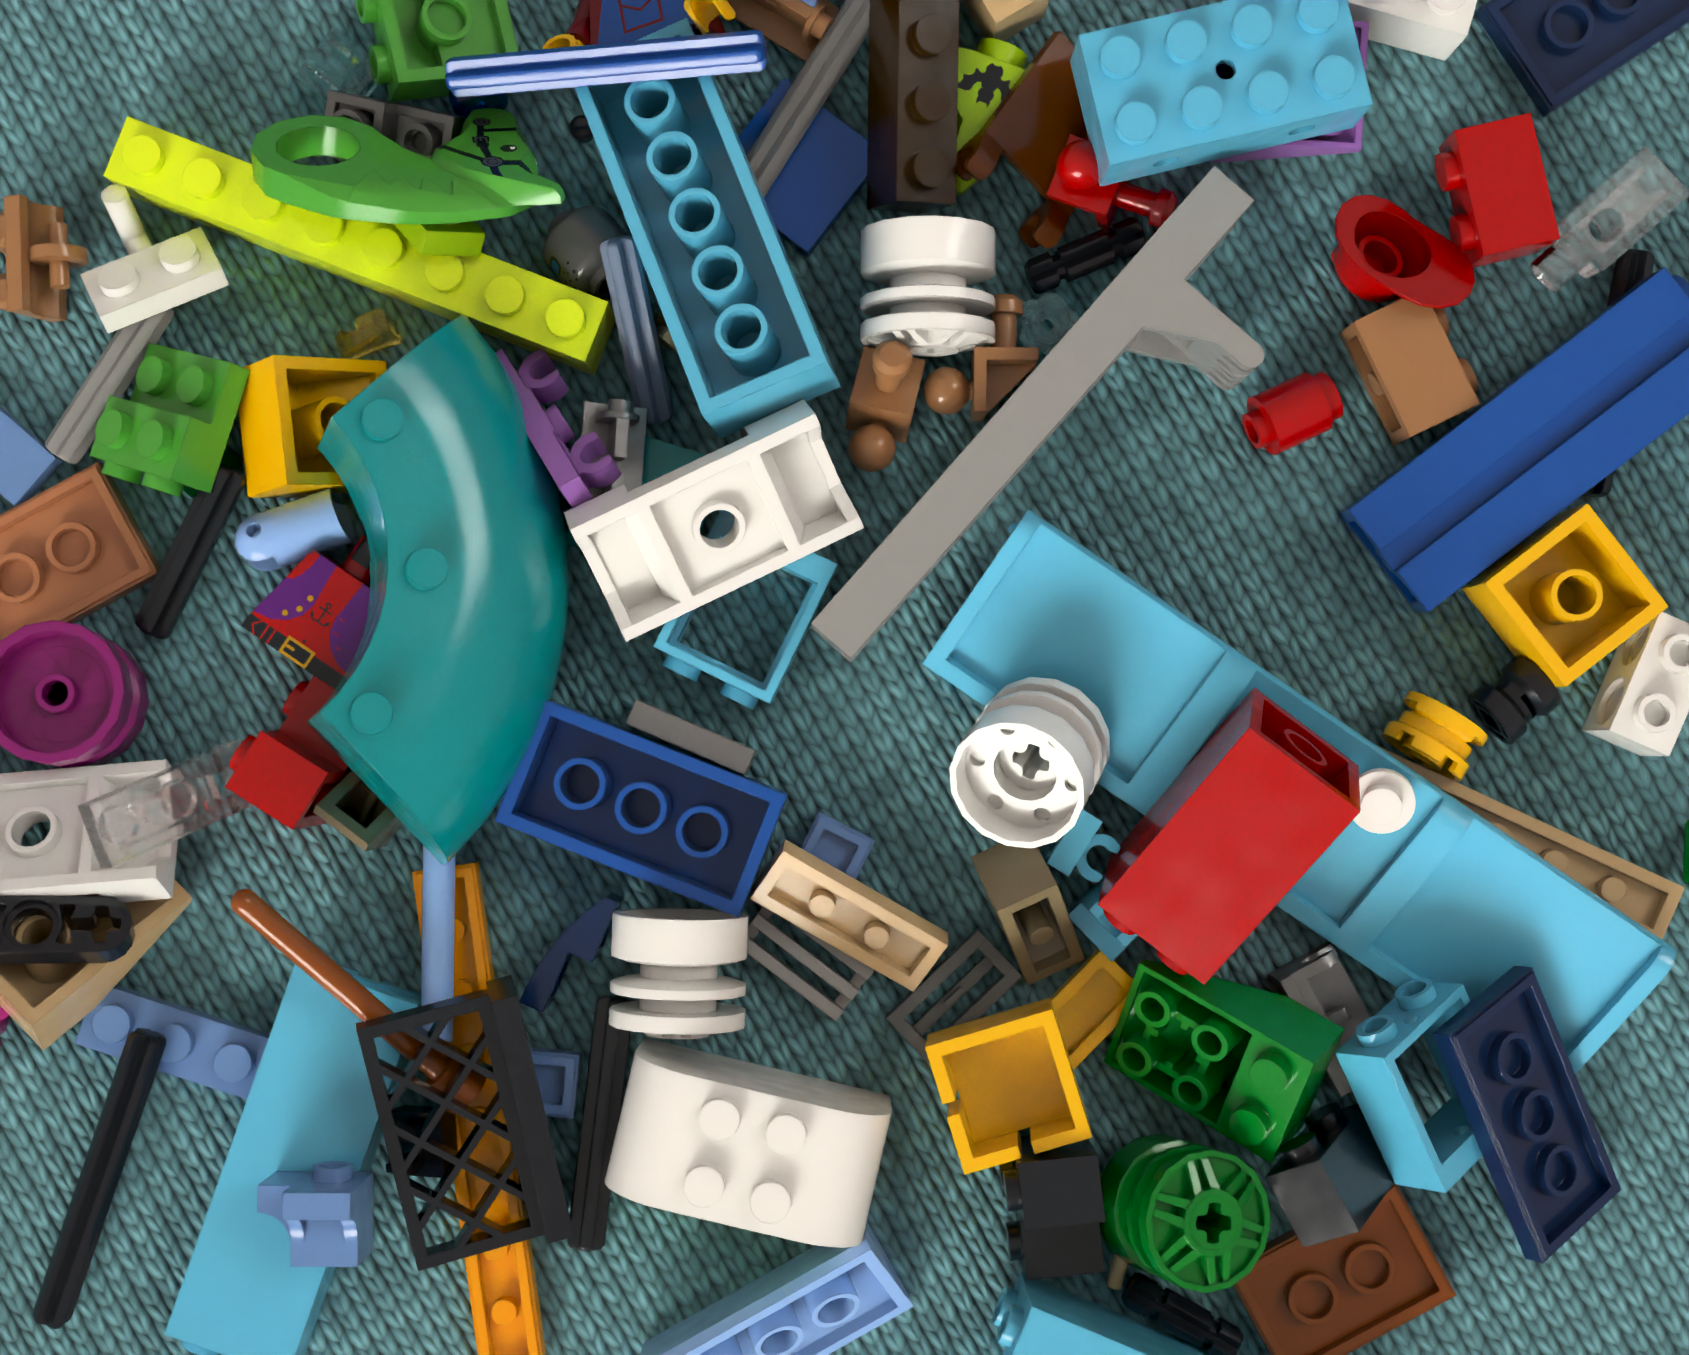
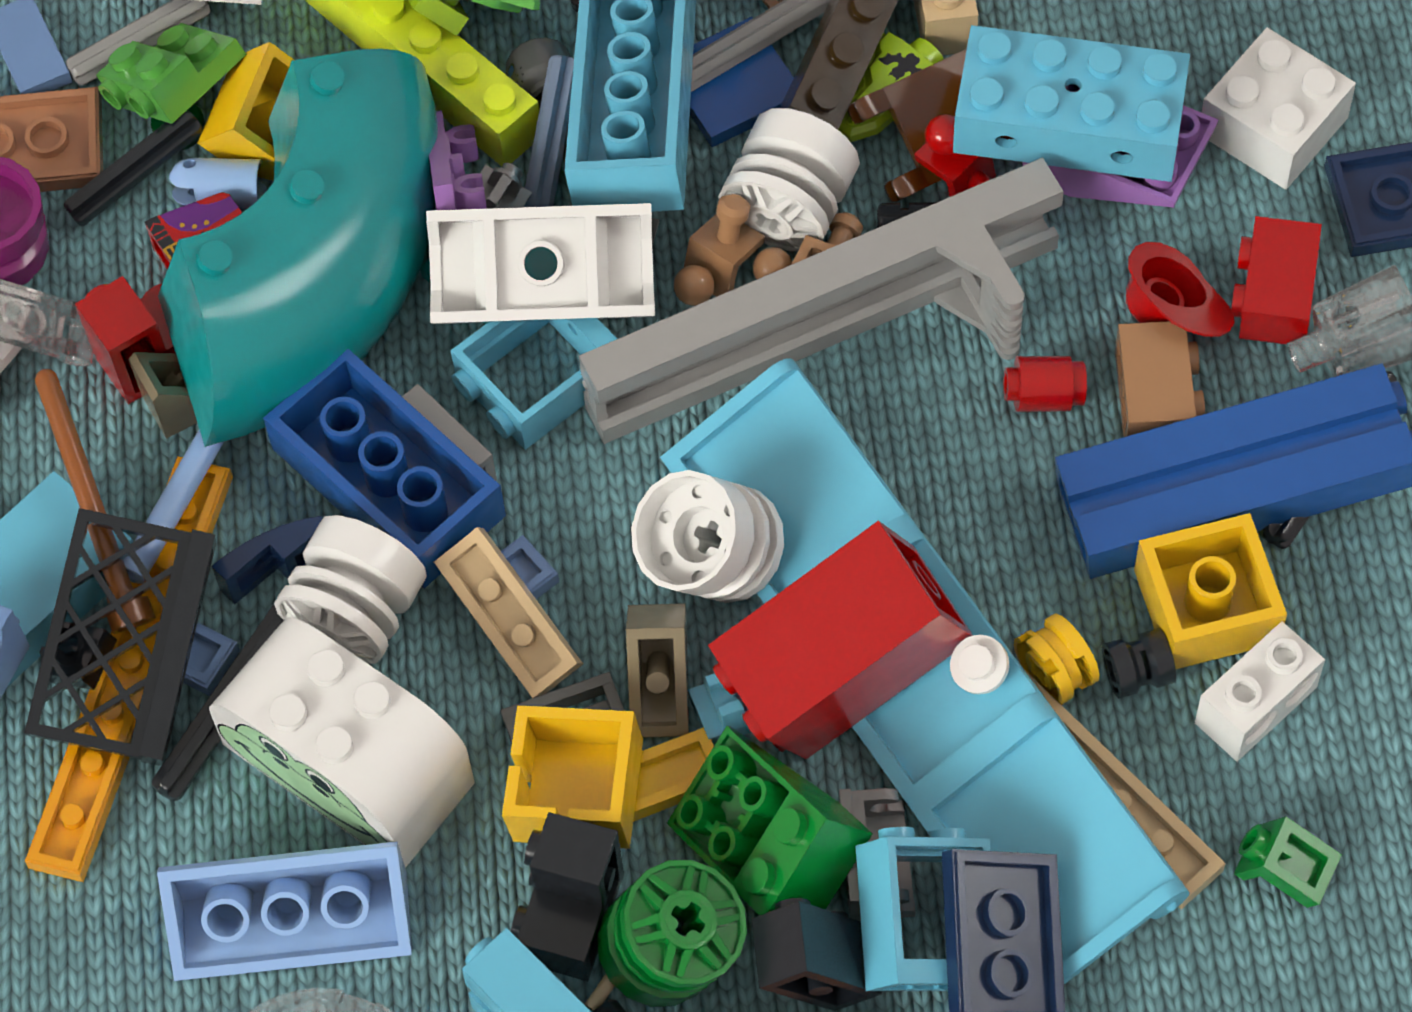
camera: 25 degrees right, 25 degrees down
(847, 989) = (437, 604): light grey tile -> none
(1072, 848) = (712, 625): medium azure tile -> none

